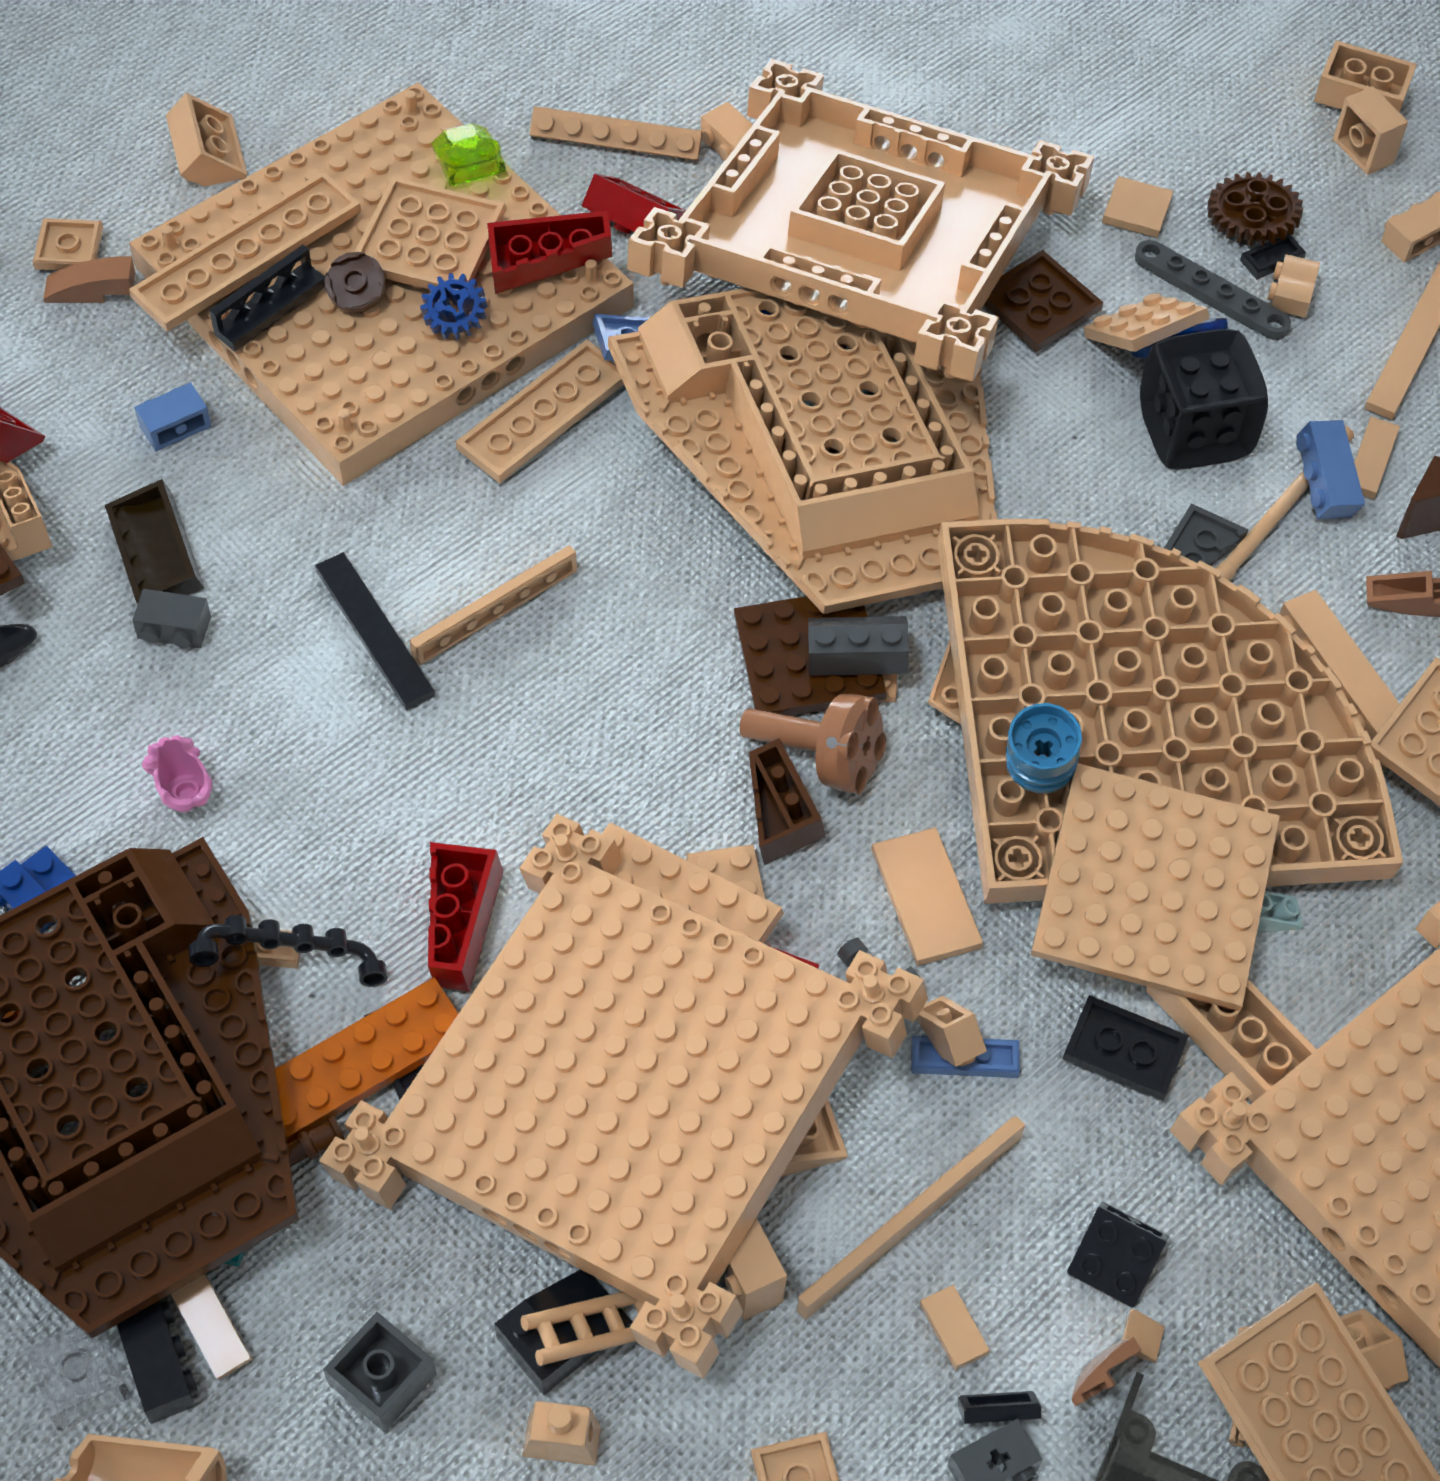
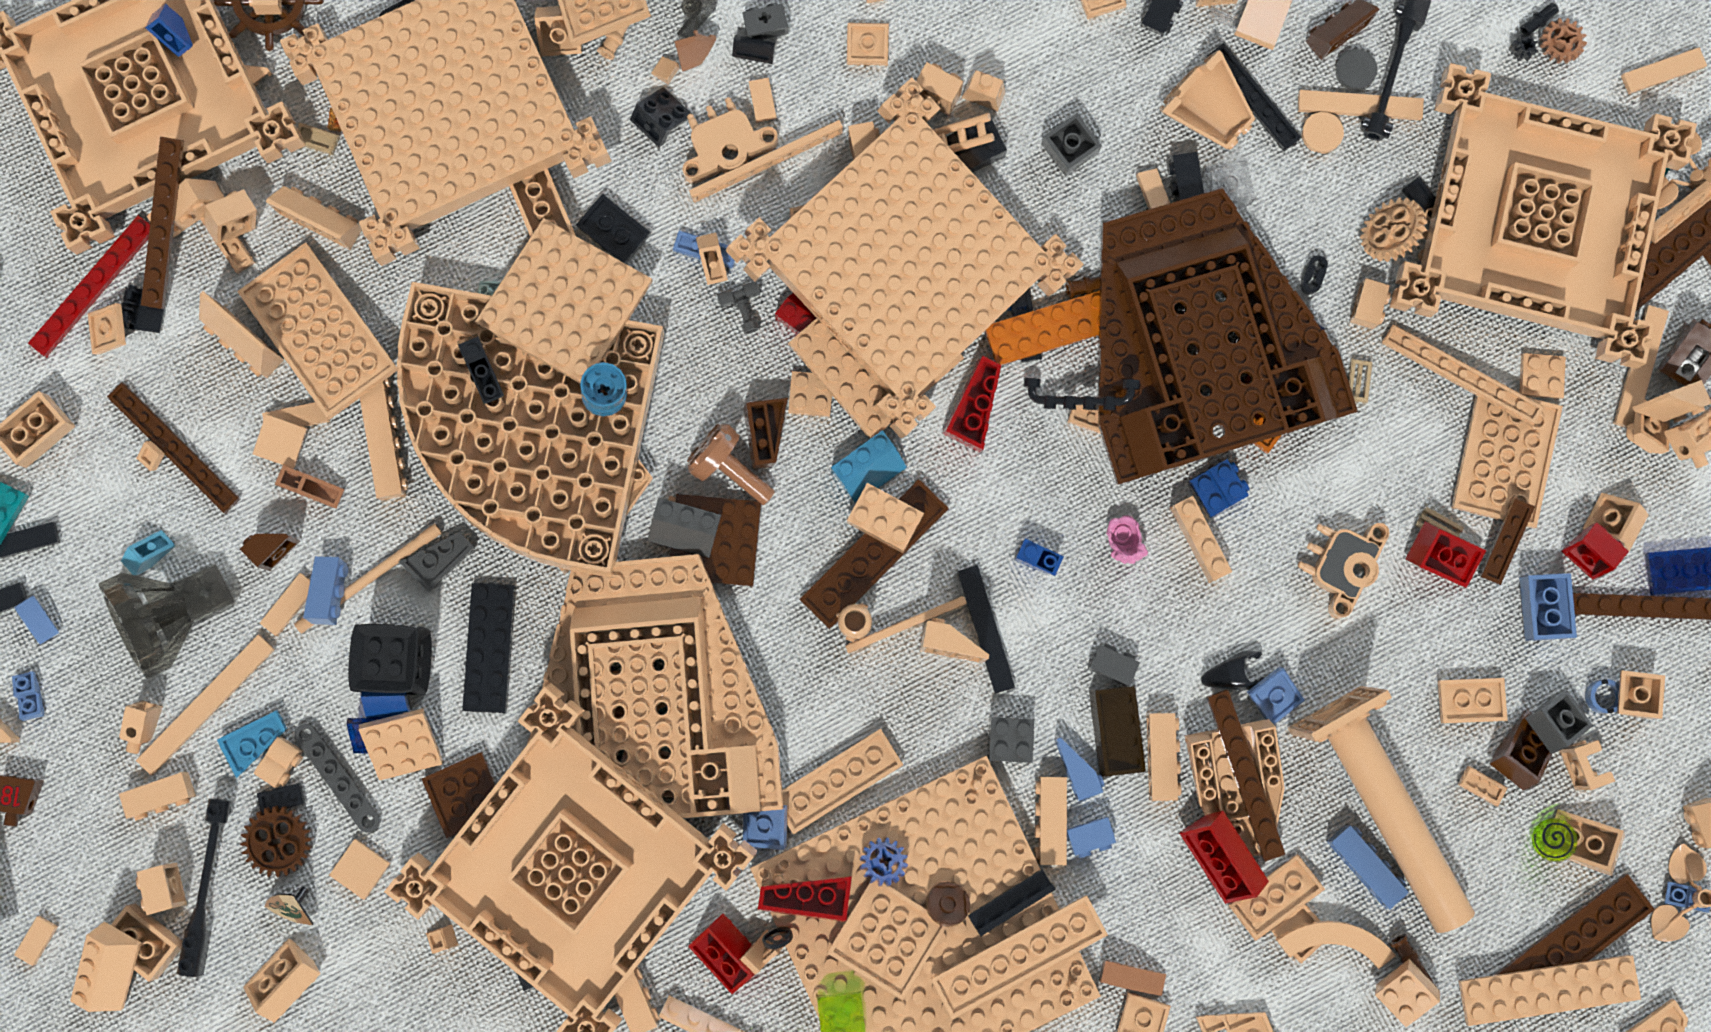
camera: 165 degrees left, 25 degrees up
(59, 806) = (1201, 539): none -> light nougat brick
(82, 526) = (1162, 757): none -> light nougat brick
(201, 484) = (1081, 775): none -> medium blue slope
(230, 423) = (1051, 821): none -> light nougat brick
(308, 499) = (1011, 739): none -> dark grey brick
(314, 726) = (1038, 557): none -> blue slope
(415, 561) = (947, 641): none -> light nougat slope
(560, 717) = (885, 518): none -> light nougat brick
(563, 688) = (868, 561): none -> reddish brown plate
(570, 574) = (854, 621): none -> light nougat piece
(593, 197) = (766, 948): none -> light nougat piece
(612, 790) = (870, 463): none -> dark azure slope
(645, 1408) = (940, 86): none -> light nougat brick
(926, 896) = (694, 355): light nougat tile -> none
(999, 1246) = (723, 134): none -> light nougat piece
(1077, 460) = (489, 648): none -> black plate
(1181, 83) = (281, 981): none -> light nougat slope
(1201, 156) = (289, 906): none -> shield
(1245, 750) = (480, 368): none -> black slope
(1304, 104) = (196, 937): none -> black bar
(1342, 301) = (250, 741): none -> dark azure wing
(1394, 37) = (105, 969): none -> light nougat slope

